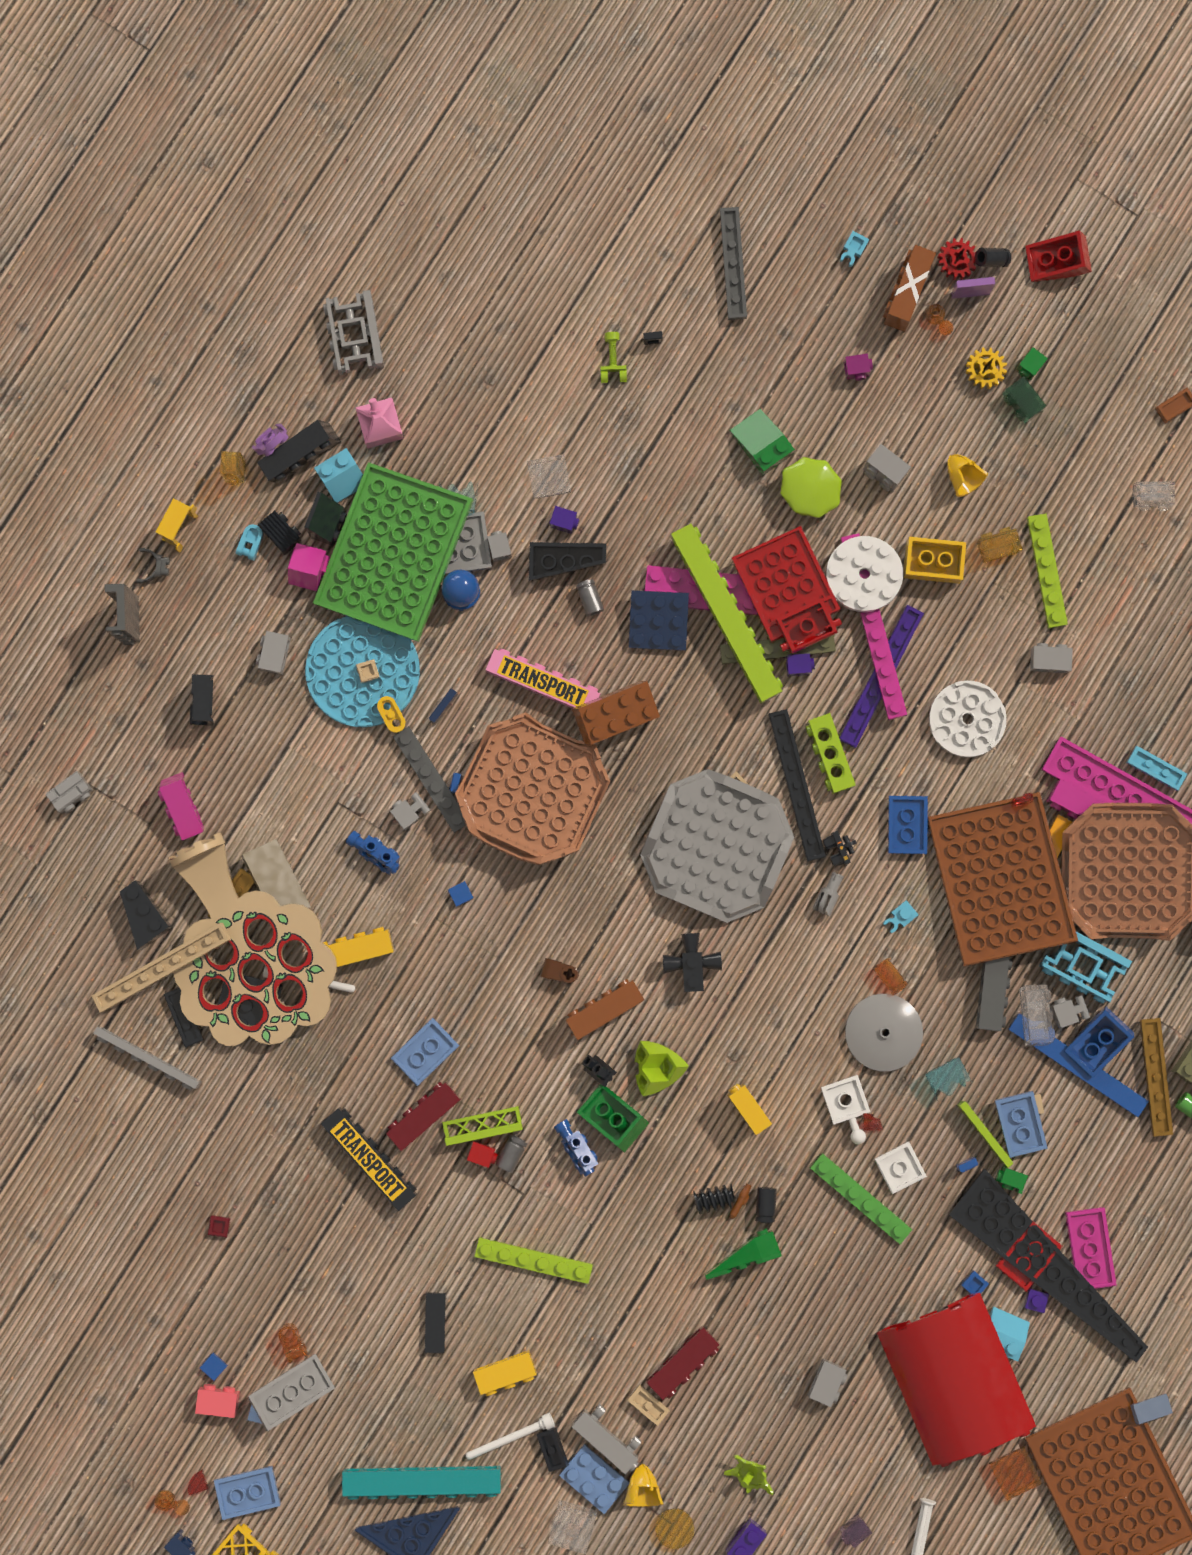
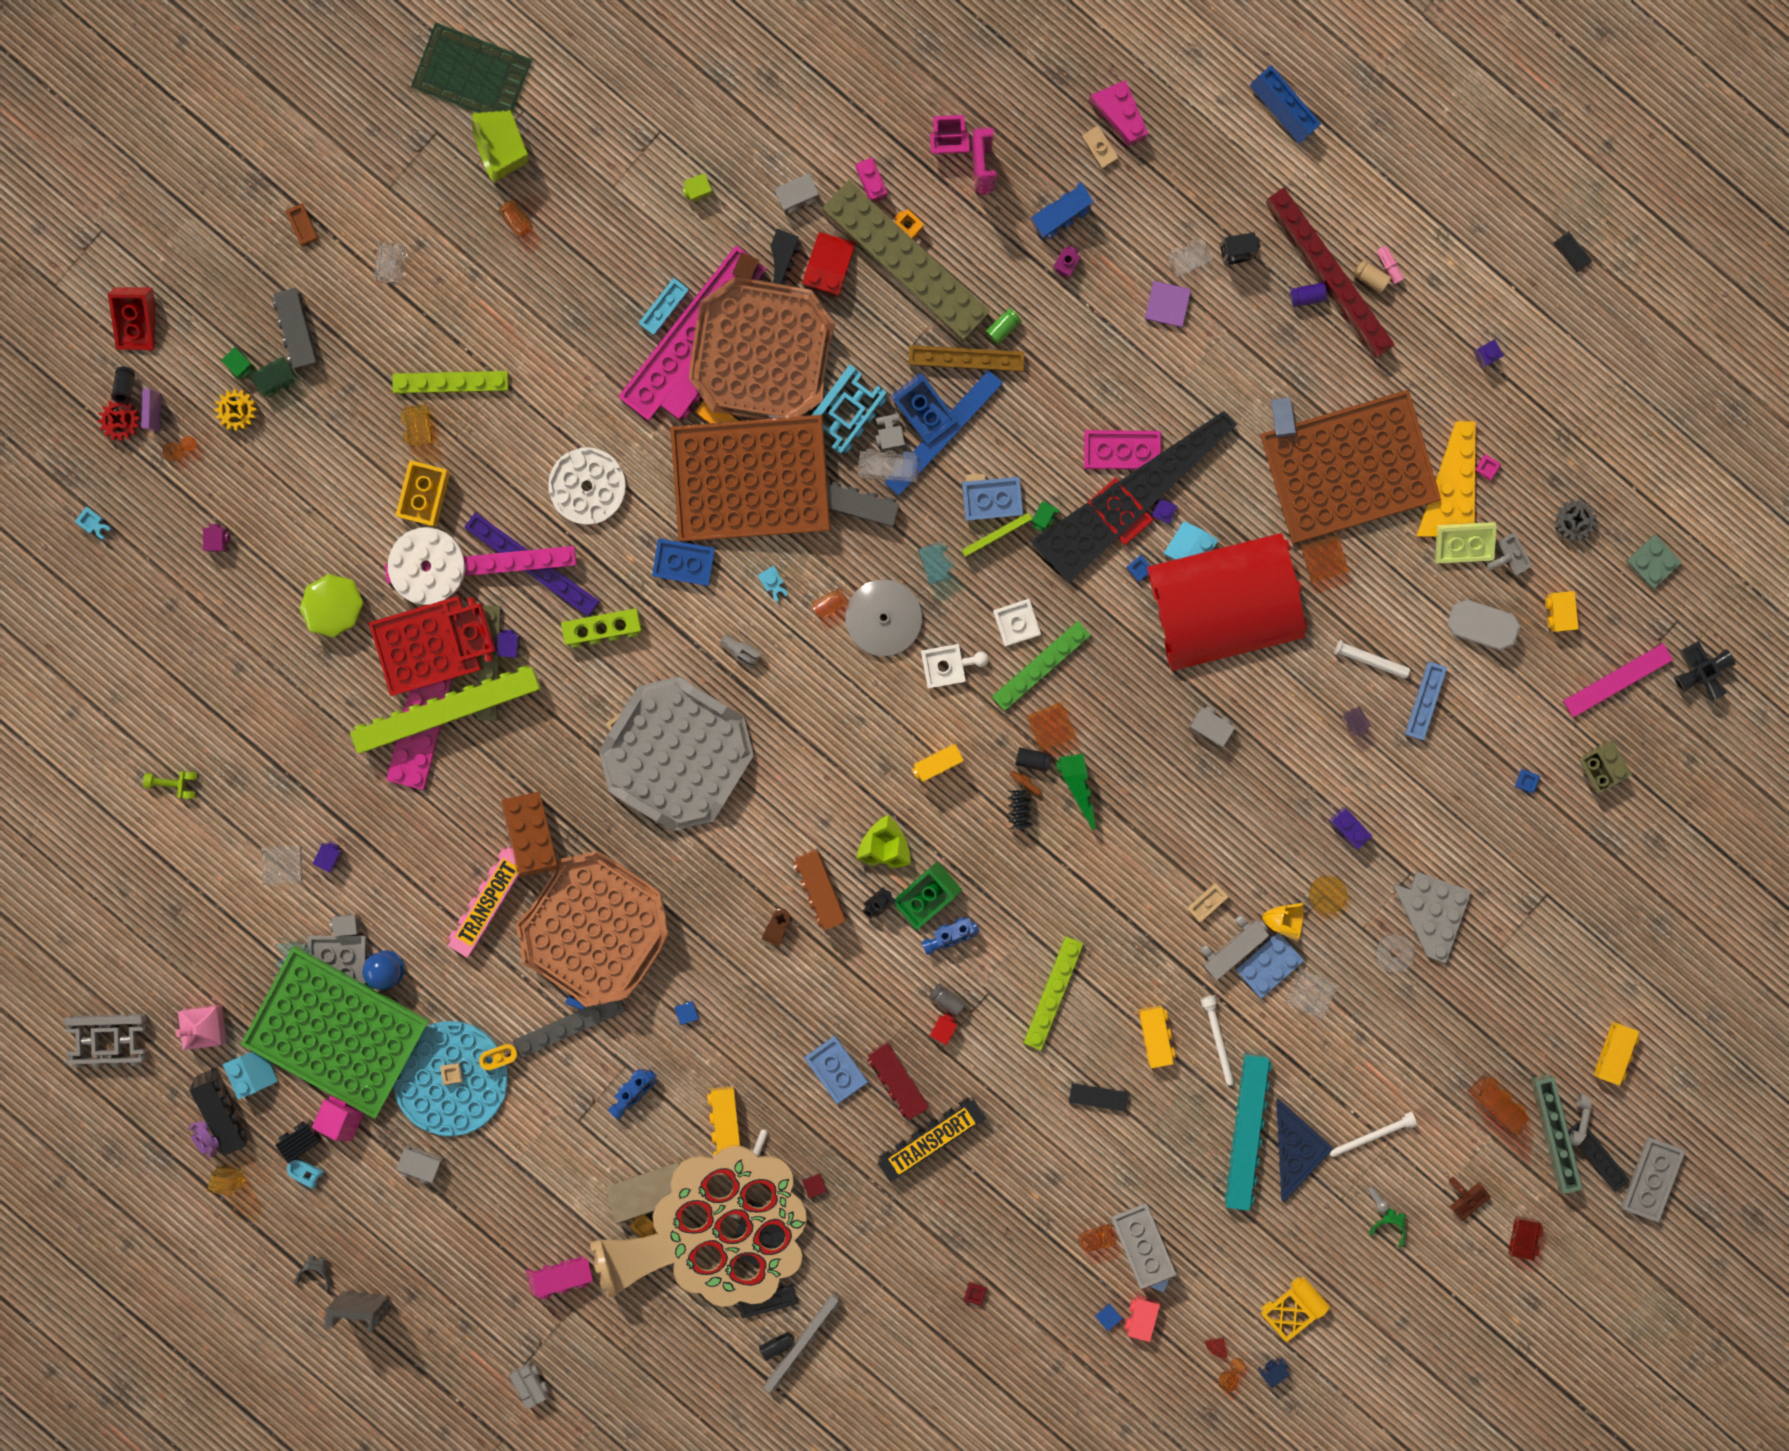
camera: 80 degrees left, 5 degrees up
(140, 1033) = (776, 1346): none -> black hinge
(143, 915) = (661, 1328): black wedge -> none
(161, 967) = (715, 1317): tan plate -> none
(173, 520) = (270, 1248): yellow piece -> none
(202, 700) = (455, 1242): black piece -> none
(247, 1492) = (1232, 1300): medium blue plate -> none
(306, 1047) = (814, 1185): none -> dark red tile
(325, 519) = (292, 1096): black slope -> none
(406, 814) = (599, 1055): light grey brick -> none
(443, 706) = (497, 1003): dark blue tile -> none
(479, 1134) = (925, 1059): lime fence -> none
(552, 1449) = (1235, 1001): black plate -> none
(561, 558) = (366, 865): black wedge -> none
(590, 597) = (410, 842): flat silver piece -> none
(652, 338) = (155, 740): black tile -> none
(658, 620) = (443, 777): dark blue plate -> none
(683, 1363) = (1172, 863): dark red brick -> none
(692, 963) = (787, 796): black brick -> none
(733, 263) = (90, 647): dark grey plate -> none
(750, 1475) = (1288, 814): lime piece -> none
(762, 441) = (278, 646): slope -> none
(797, 785) = (628, 665): black tile -> none
(802, 1218) = (1051, 726): none -> clear orange plate
(842, 856) = (705, 632): black hips -> none
(871, 1123) = (969, 644): clear red tile -> none
(886, 468) = (323, 527): light grey brick -> none
(909, 289) = (140, 473): dark orange brick -> none
(964, 474) = (341, 449): yellow helmet -> none
(967, 1164) = (1023, 557): blue tile -> none
(1026, 799) = (674, 441): clear red tile -> none
(1051, 659) = (539, 393): light grey brick -> none
(1075, 414) = (296, 329): none -> dark grey brick

